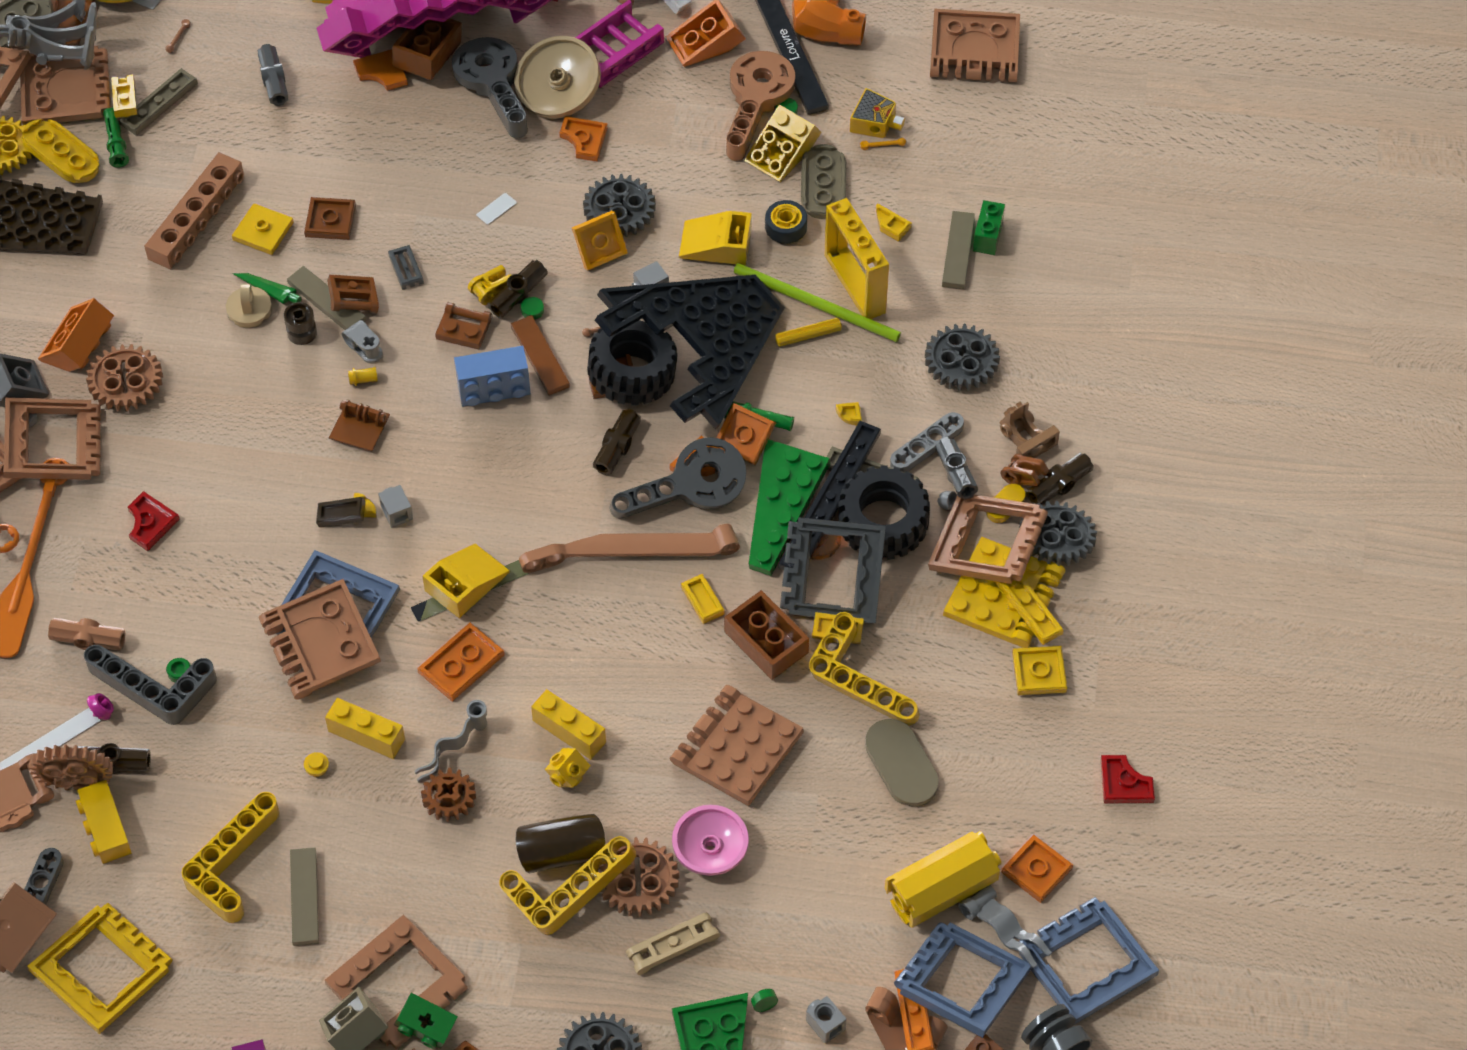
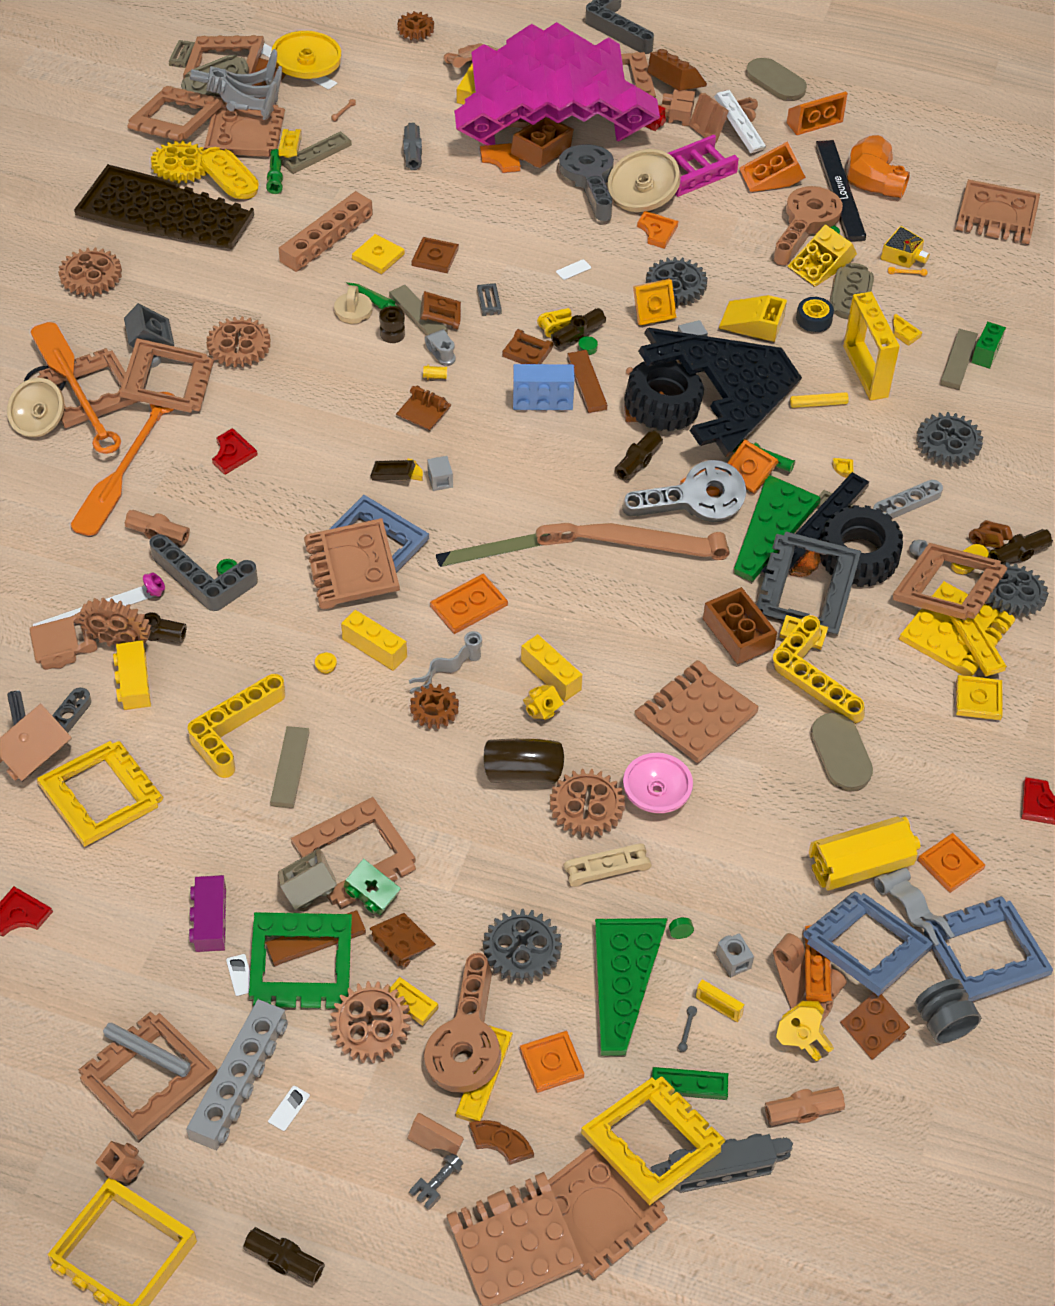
camera: 10 degrees right, 5 degrees down
(77, 336) = (208, 305): orange slope -> none
(463, 578) = (484, 538): yellow slope -> none
(570, 887) = (524, 800): yellow beam -> none
(702, 598) = (688, 589): yellow tile -> none
(820, 303) = (837, 382): lime piece -> none
(956, 468) = (930, 522): dark grey piece -> none
(1022, 419) = (992, 495): medium nougat tile -> none

